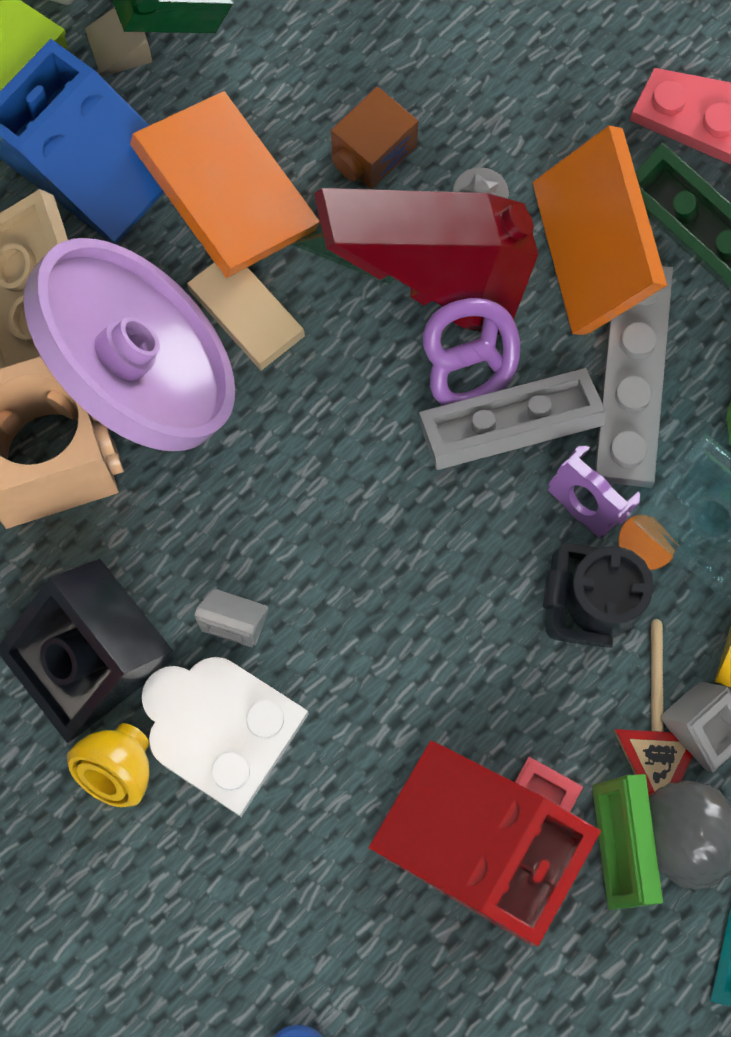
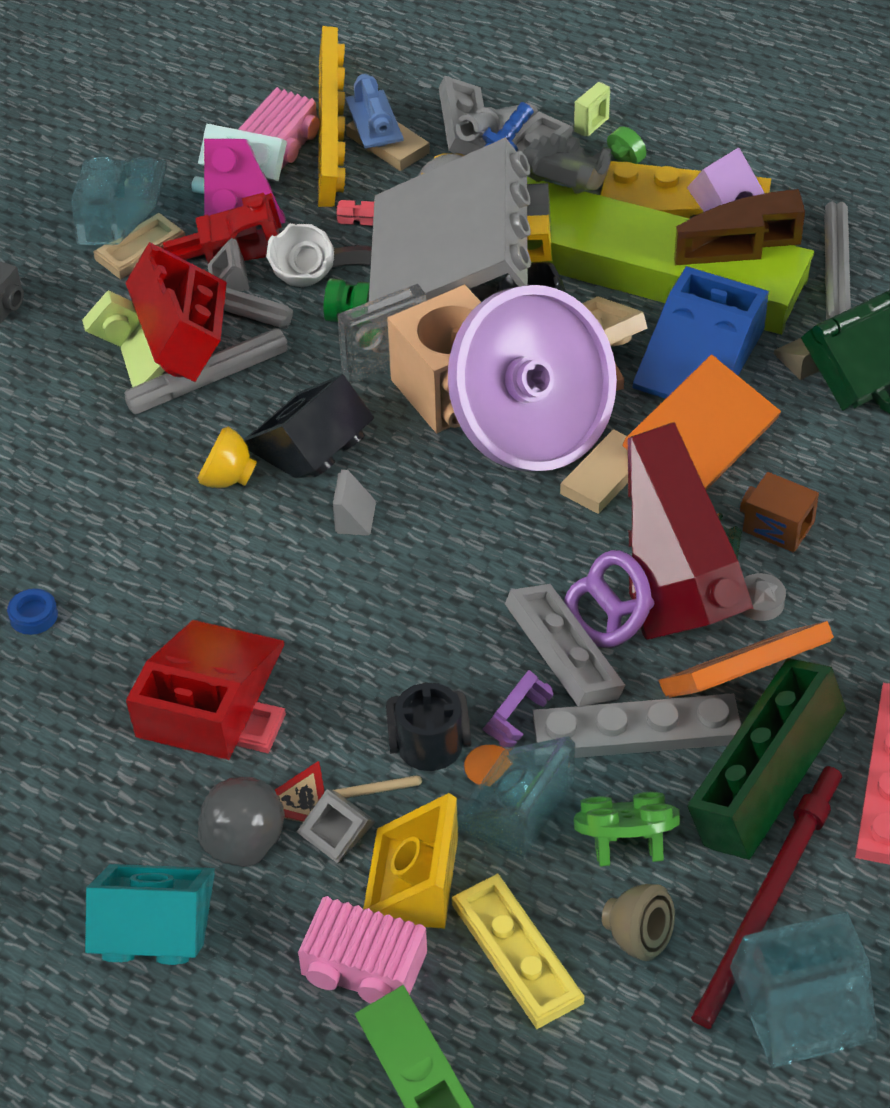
camera: 80 degrees right, 25 degrees down
(219, 728) = (266, 521): white plate -> none
(627, 842) = (204, 777): bright green tile -> none

